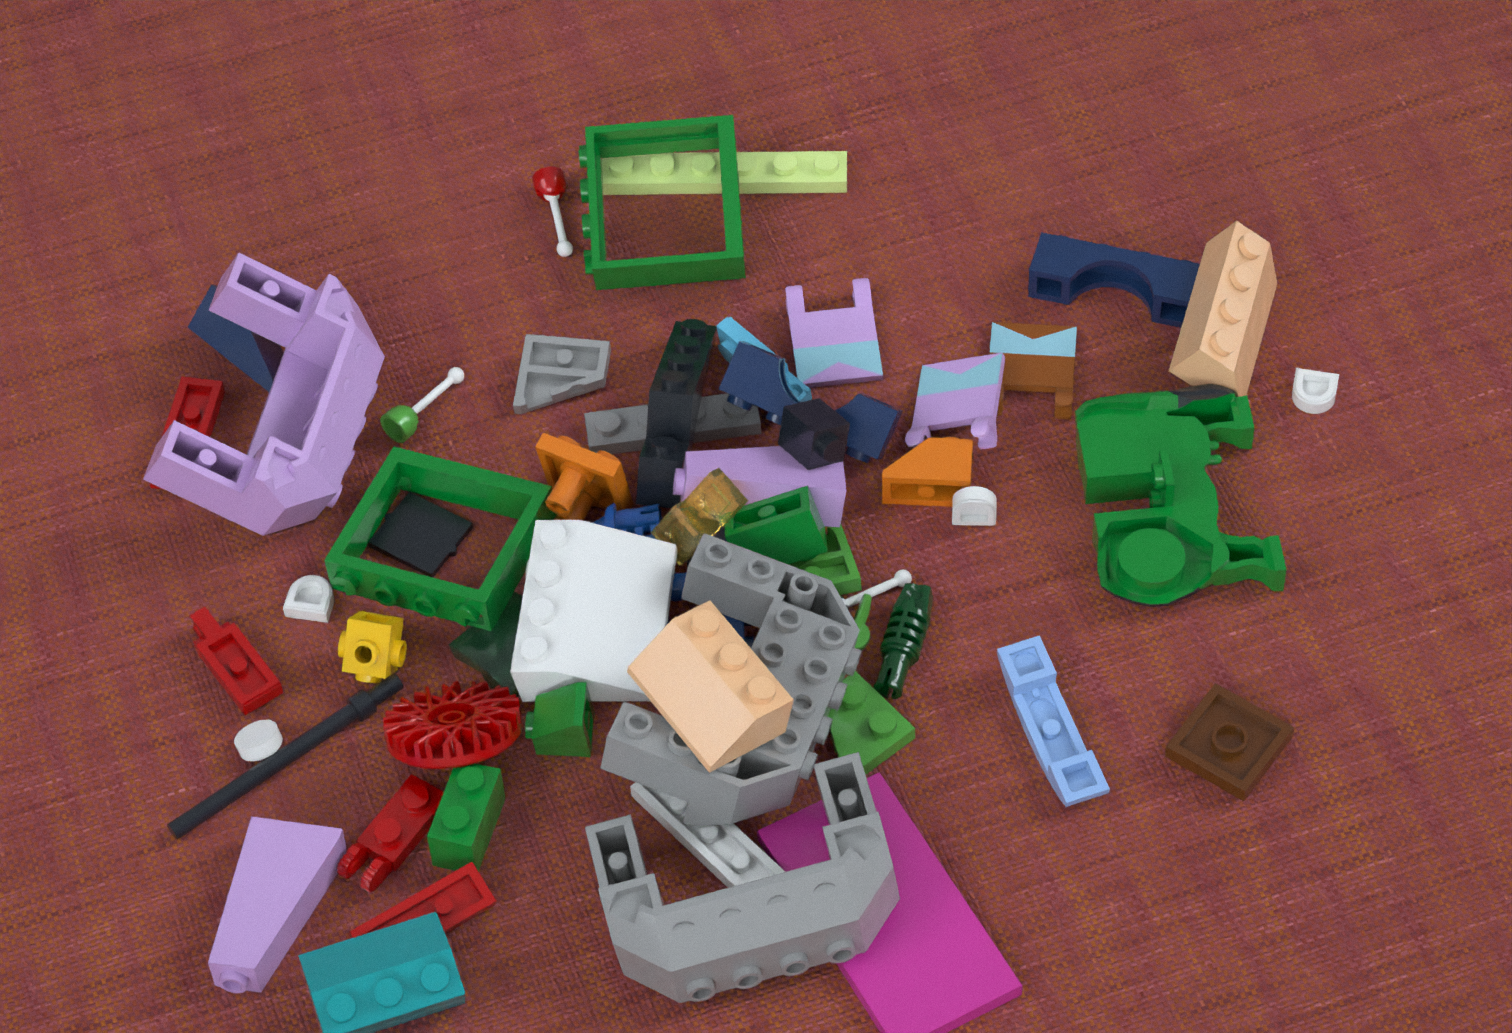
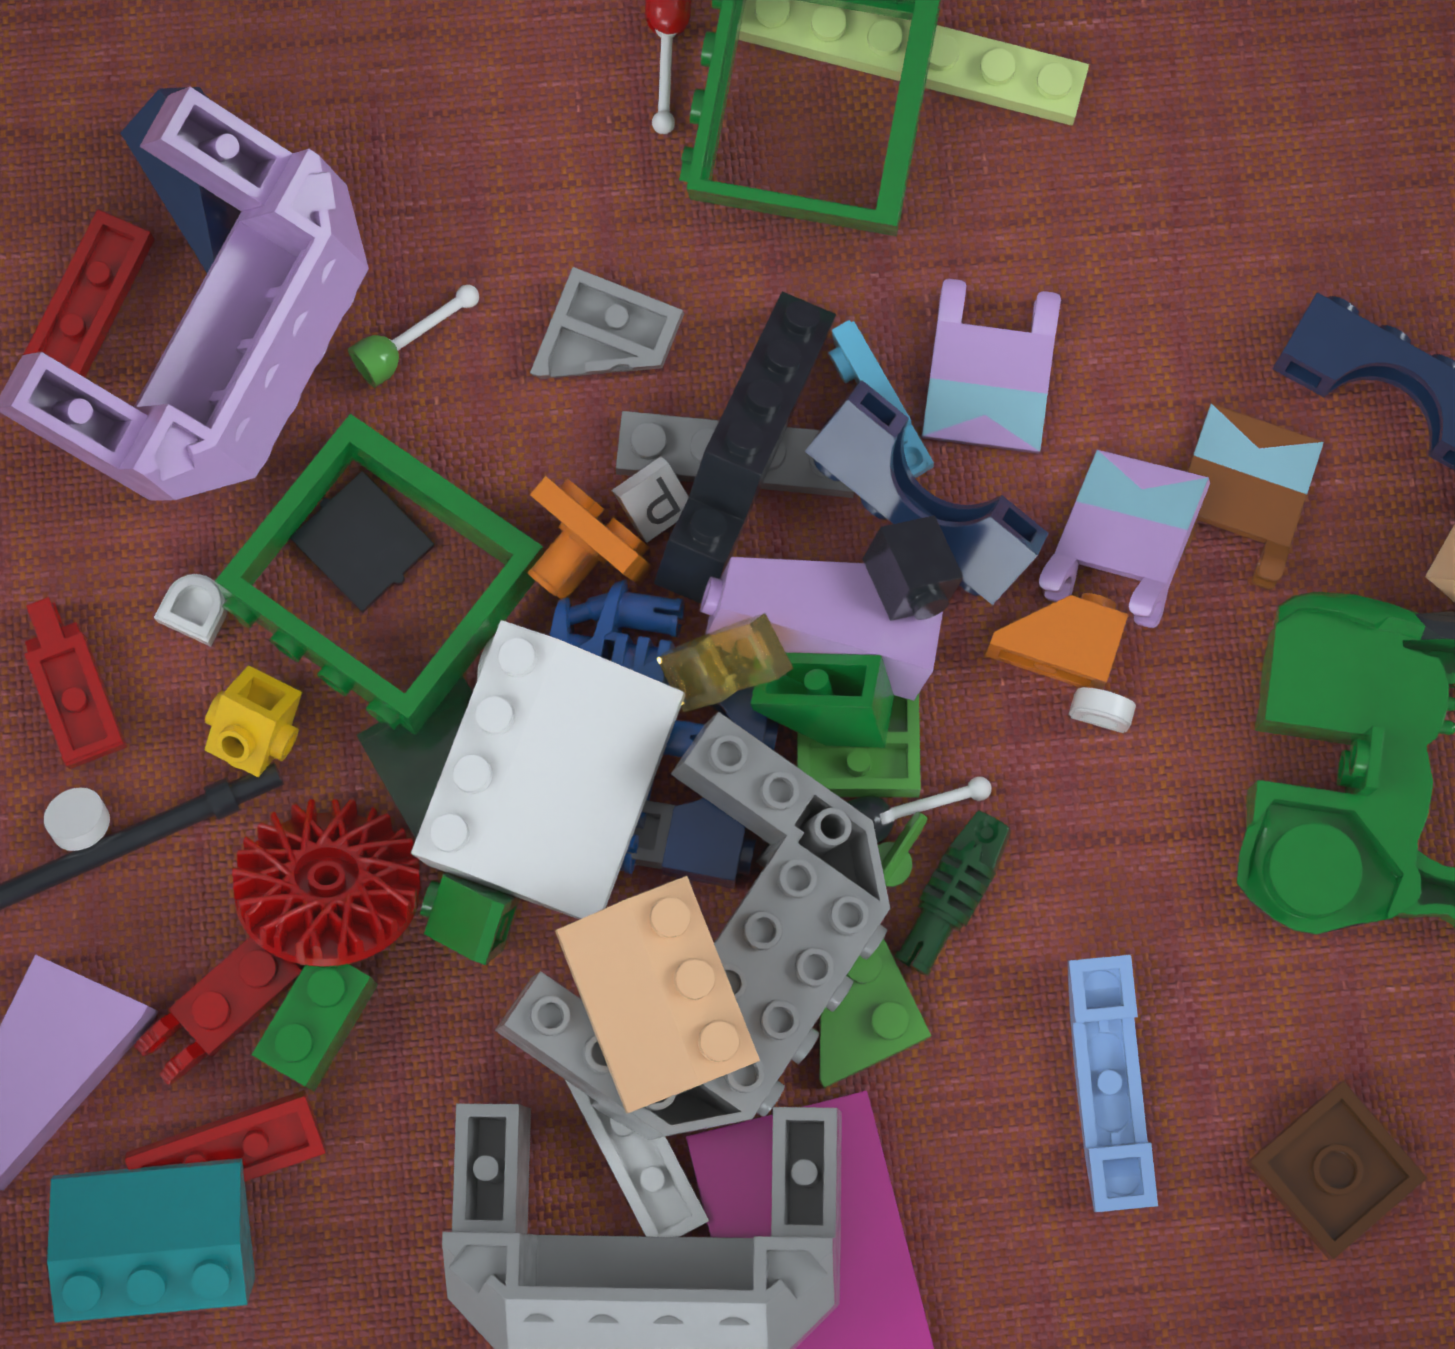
camera: 10 degrees right, 25 degrees up
(626, 449) = (652, 499): none -> white tile

